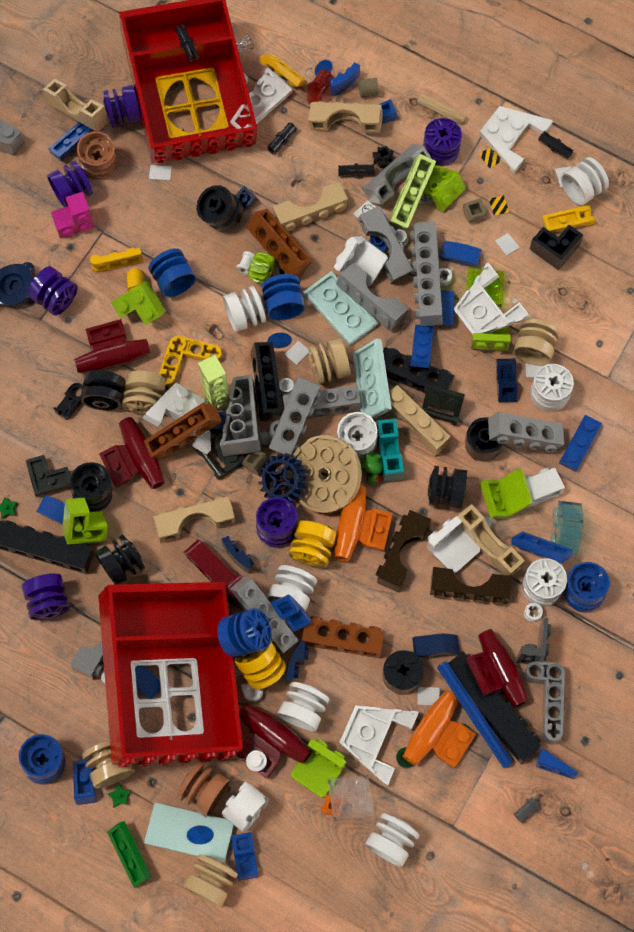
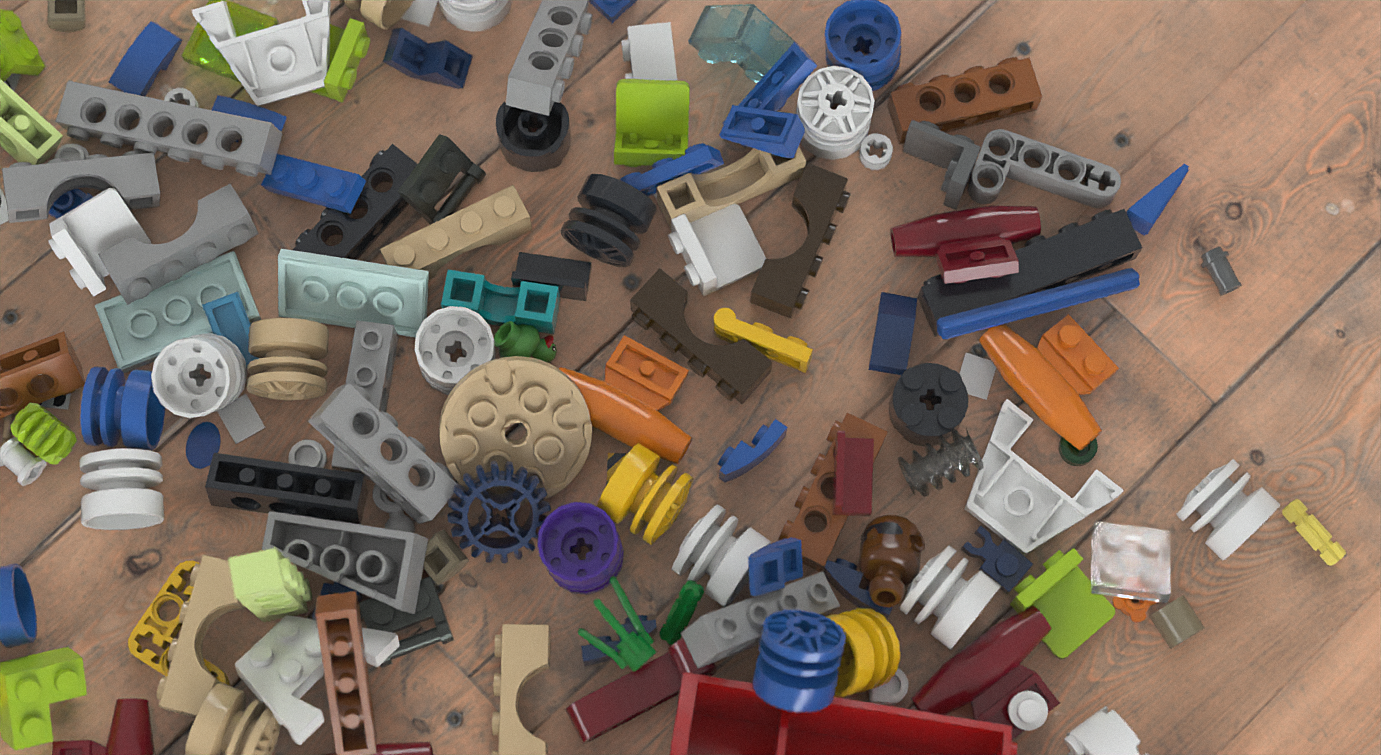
camera: 75 degrees left, 5 degrees up
(169, 363) = (188, 676): none -> tan arch
(231, 558) = (633, 649): none -> green plant
(261, 578) = (681, 612): none -> green axle
(308, 324) = (183, 388): none -> white wheel
(315, 671) = (890, 557): none -> reddish brown piece
(327, 831) = (1177, 622): none -> dark tan brick
(332, 733) = (1001, 562): none -> dark blue plate
(341, 329) = (230, 319): none -> dark azure tile
(346, 588) = (744, 458): none -> blue slope
(350, 639) = (853, 476): none -> dark red panel
(371, 687) = (941, 463): none -> clear smoke piece
(397, 894) = (1313, 532): none -> light yellow axle
(411, 581) = (789, 351): none -> yellow plate
(413, 472) = (567, 274): none -> black panel
(492, 519) = (696, 160): none -> blue plate
(518, 547) = (764, 130): none -> blue slope
(588, 677) = (1012, 74): none -> dark orange brick

